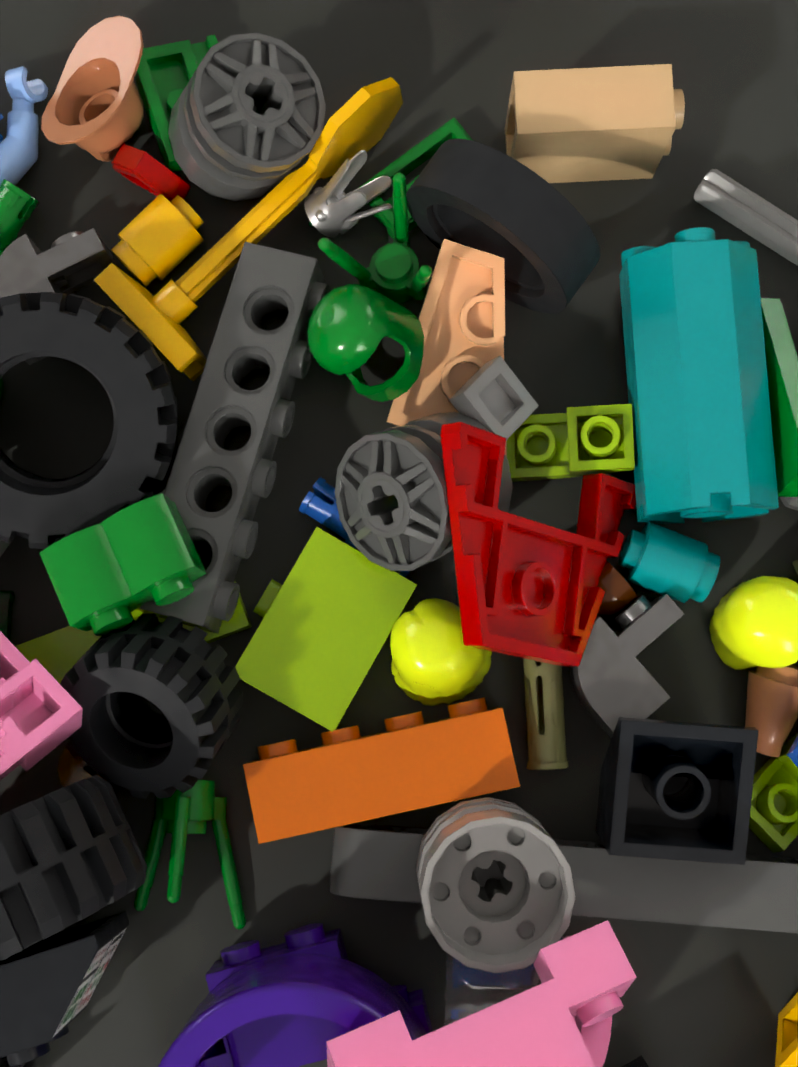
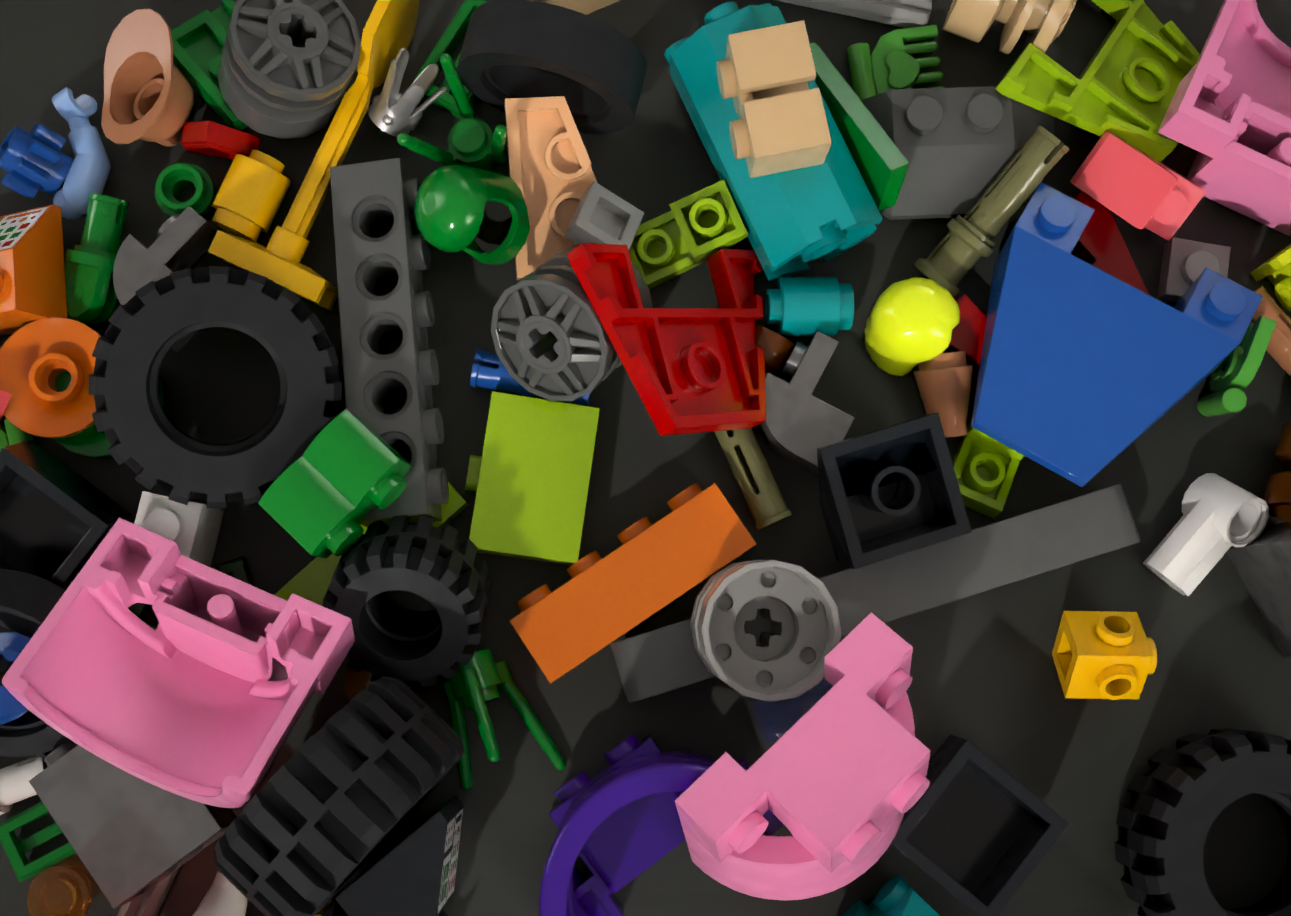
camera: 30 degrees left, 0 degrees up
(92, 195) = (179, 176): none -> green plate
(431, 655) = (638, 464): neon yellow hair -> none
(713, 359) = (779, 117): none -> tan piece

